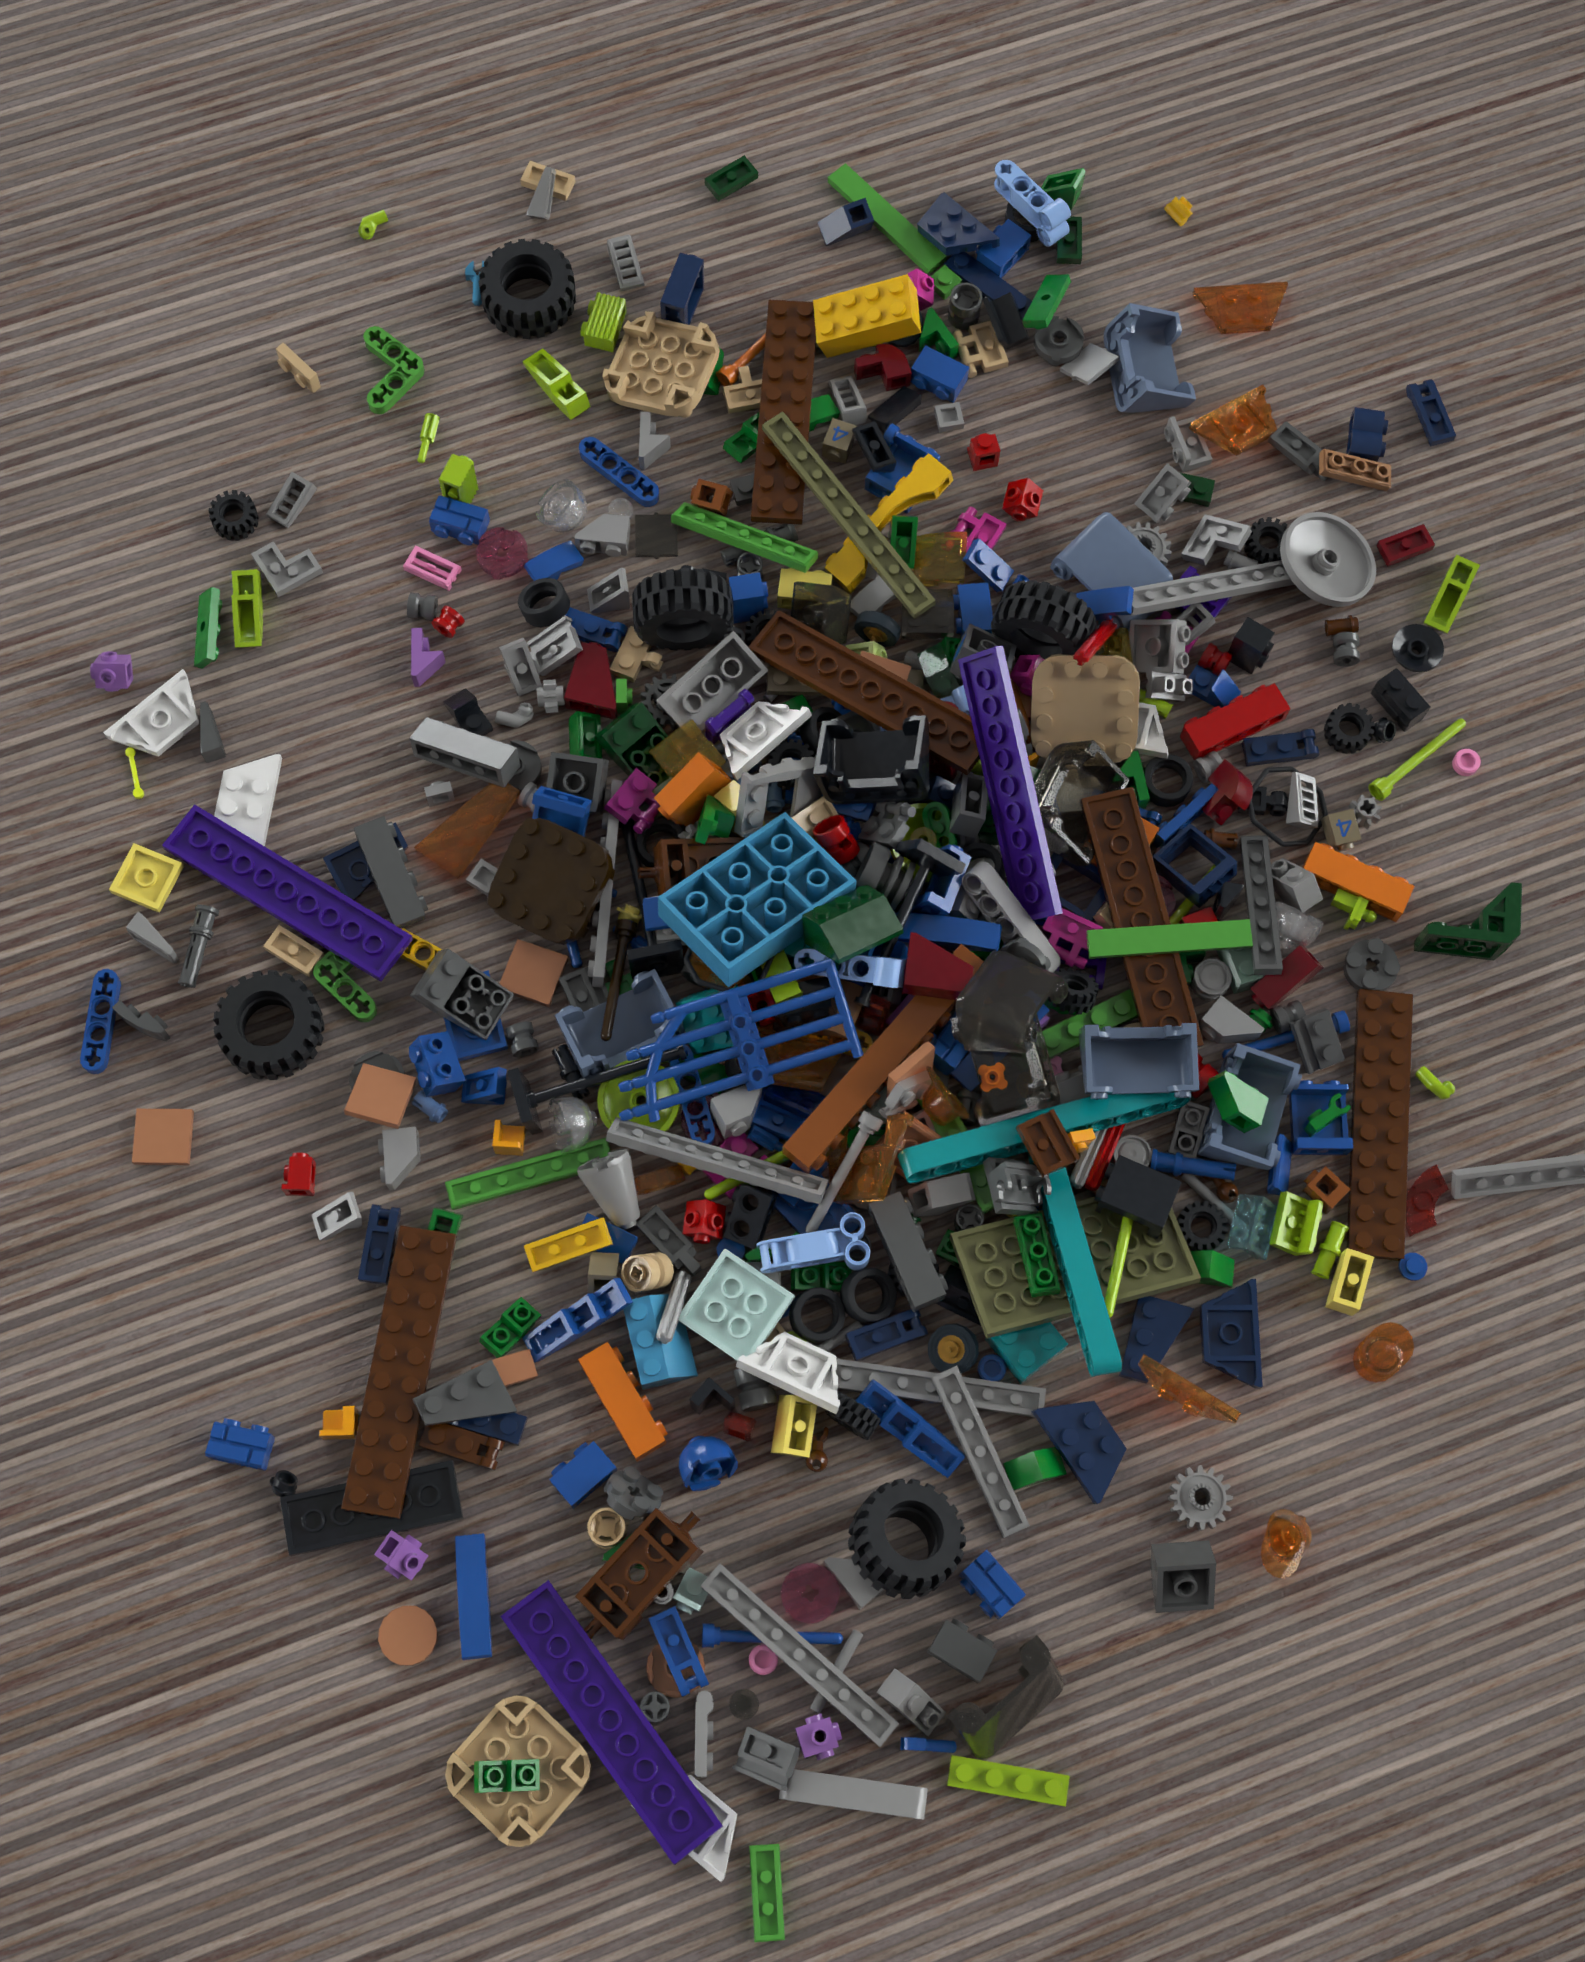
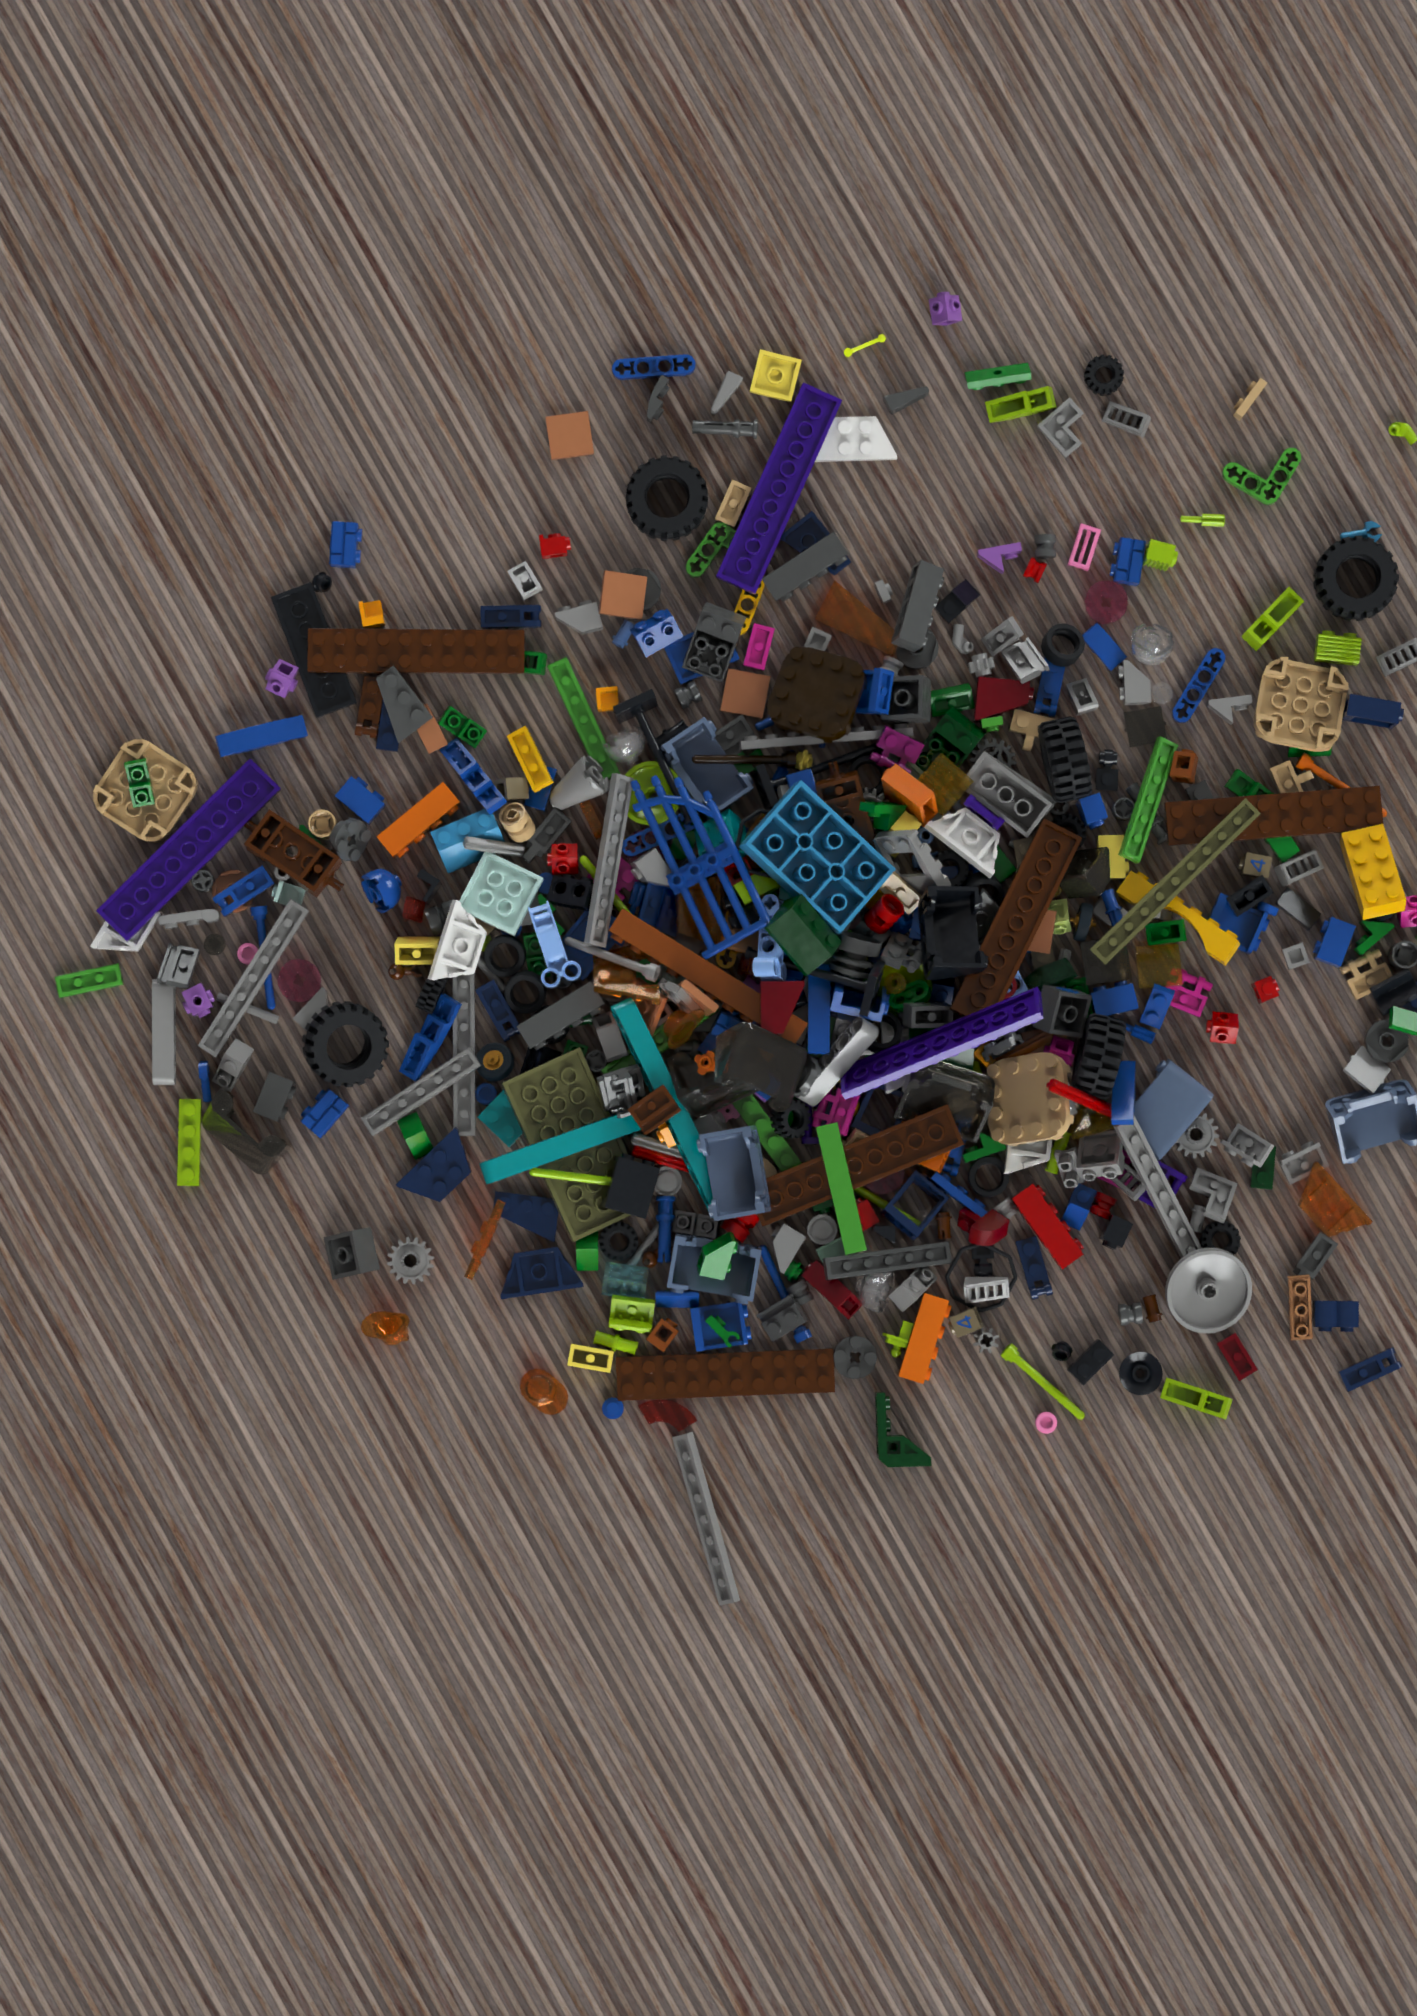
camera: 80 degrees right, 15 degrees up
(158, 719) = (912, 355): white wing -> none
(408, 1635) = (227, 694): nougat tile -> none
(478, 947) = (759, 647): none -> dark pink plate
(485, 1087) = (645, 672): blue slope -> none
(869, 592) = (1111, 906): none -> blue axle
(888, 363) = (1338, 898): dark red brick -> none
(1038, 1268) = (559, 1117): green tile -> none
(1354, 715) = (1073, 1322): black tyre -> none
(1441, 1090) = (761, 1413): lime arm -> none

